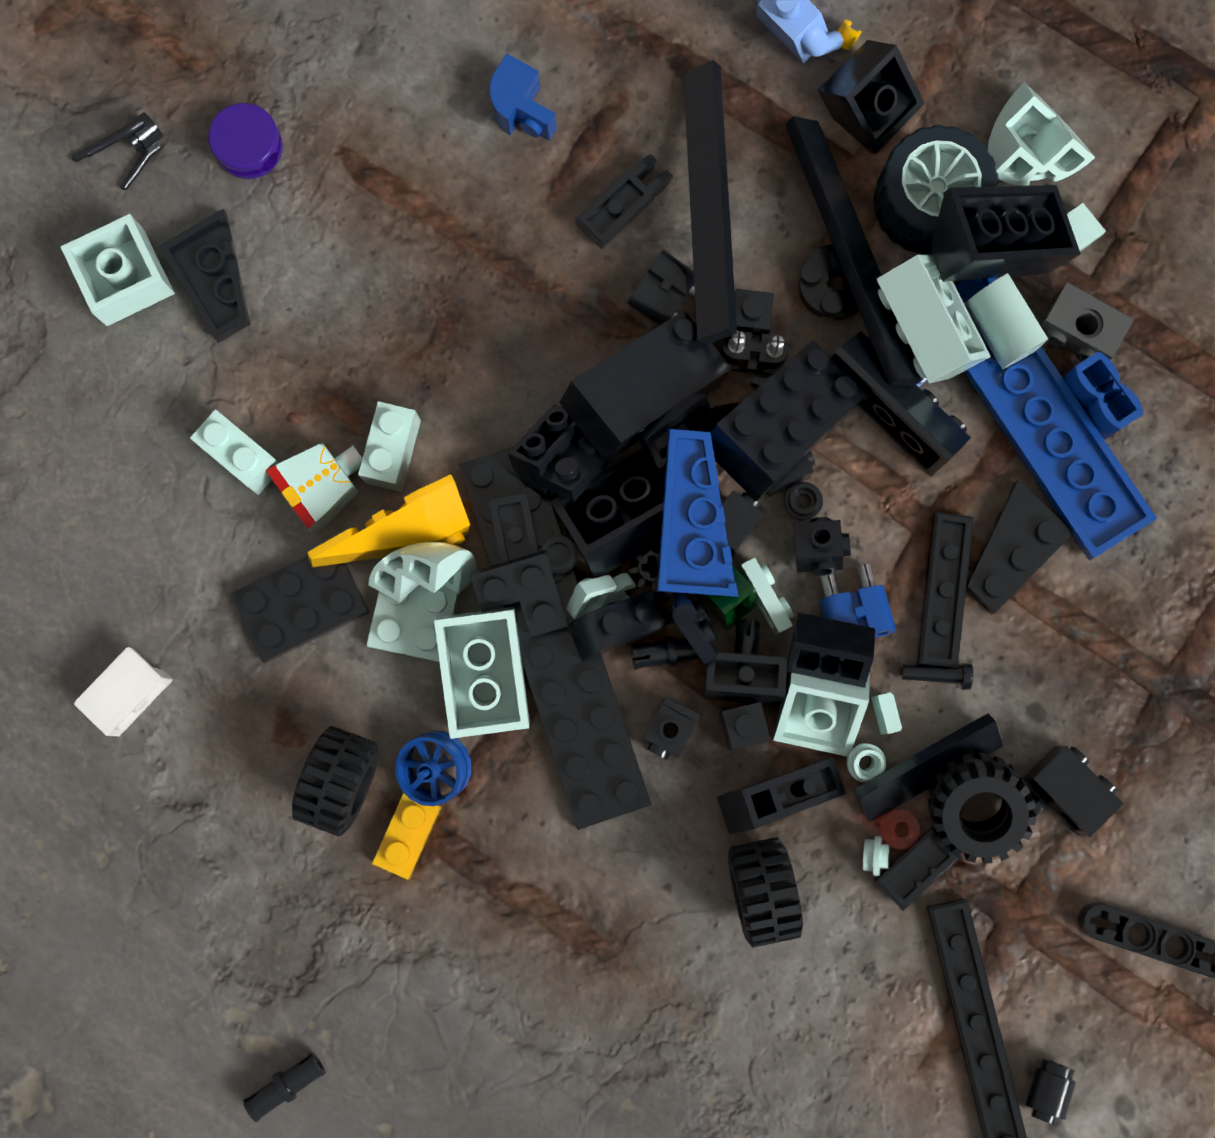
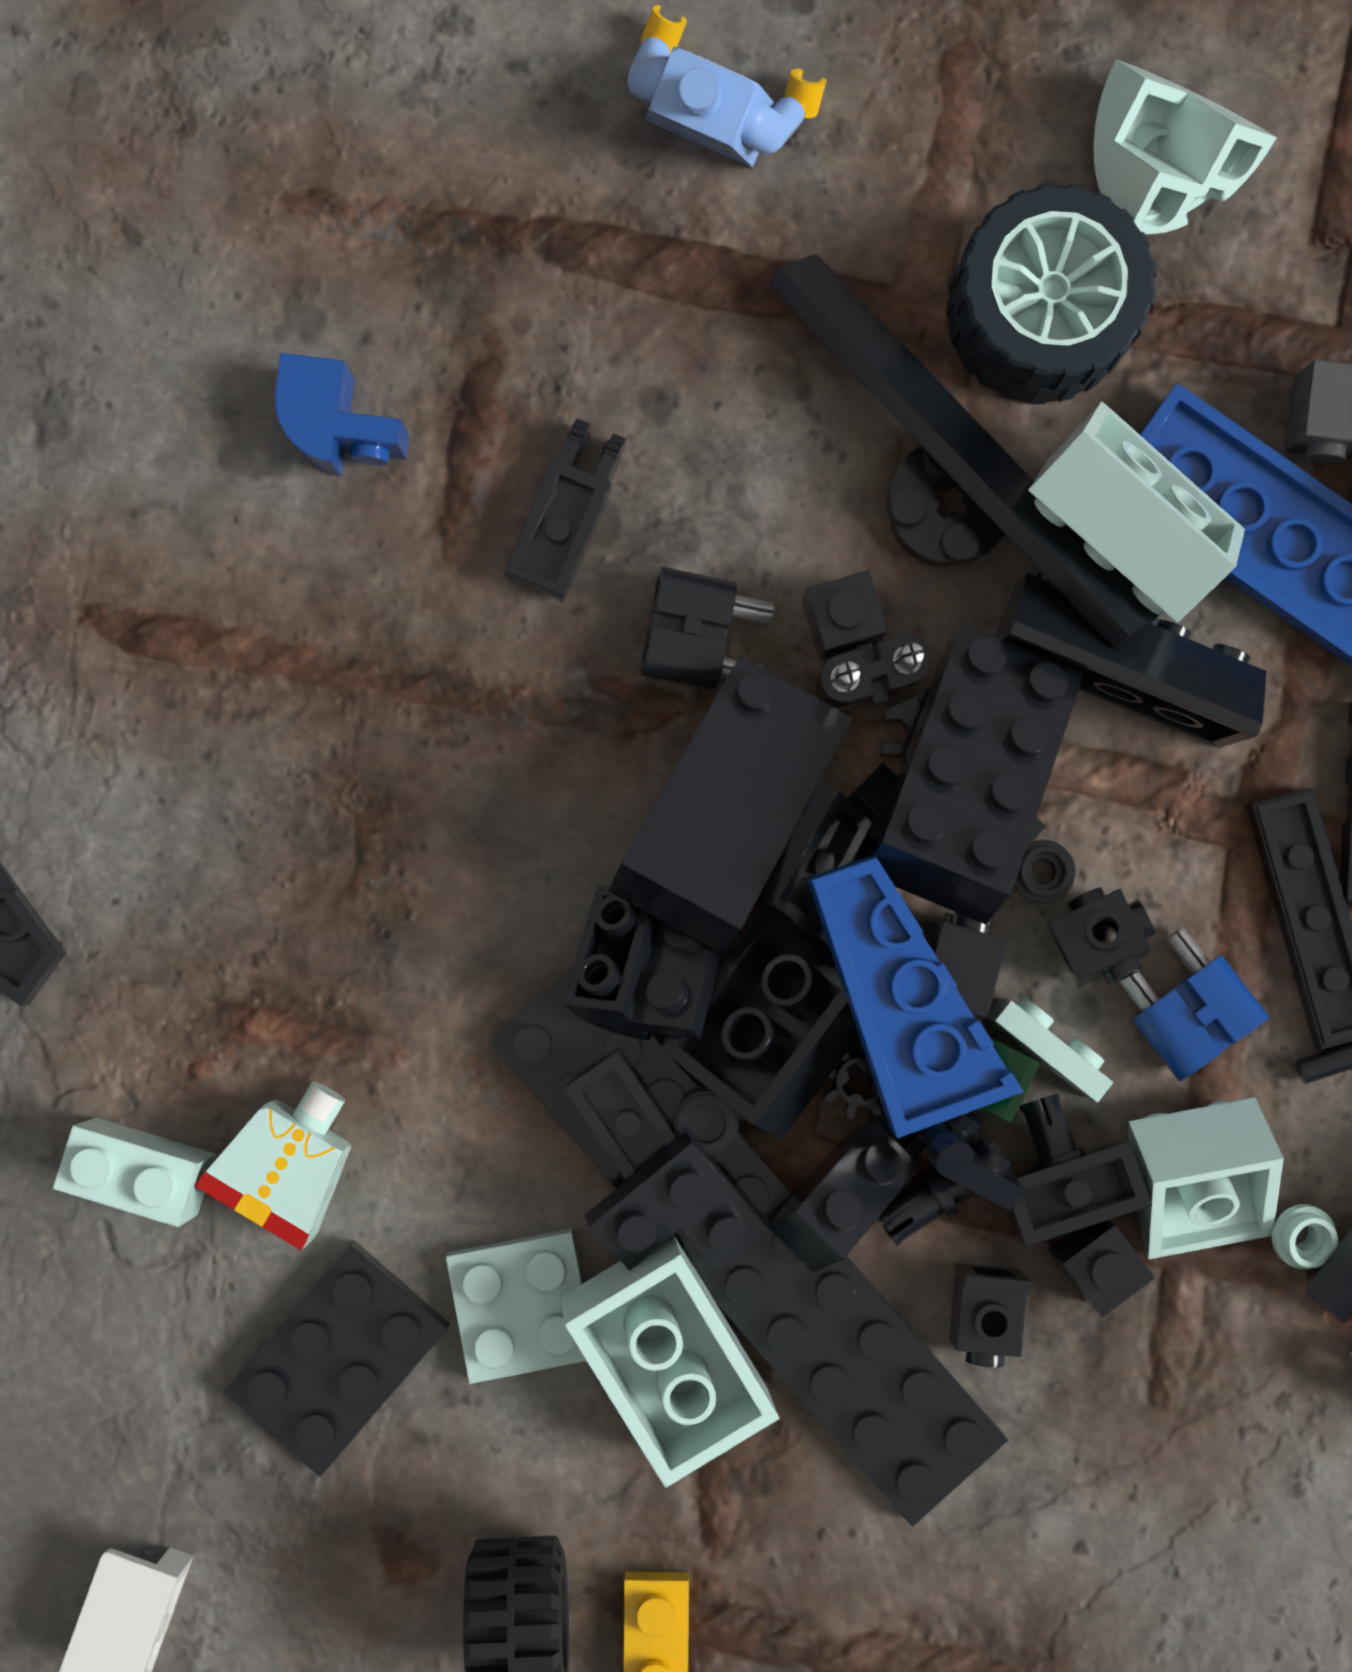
camera: 25 degrees left, 5 degrees up
(389, 446) = (370, 1063): light aqua brick -> none
(424, 565) = (510, 1239): light aqua brick -> none
(426, 516) = (471, 1168): yellow wedge -> none
(433, 768) = (653, 1563): blue wheel -> none
(598, 593) = (789, 1163): light aqua plate -> none
(709, 204) = (707, 467): black tile -> none
(765, 892) = (1244, 1514): black tyre -> none
(780, 796) = (1197, 1347): black slope -> none
(831, 650) = (1191, 1098): black brick -> none
(872, 94) = (884, 176): black slope -> none
(886, 713) = (1306, 1151): light aqua tile -> none
(1002, 232) = (1188, 326): black slope -> none
(1005, 321) = (1248, 465): light aqua brick -> none
(1084, 226) = (1289, 261): light aqua tile -> none

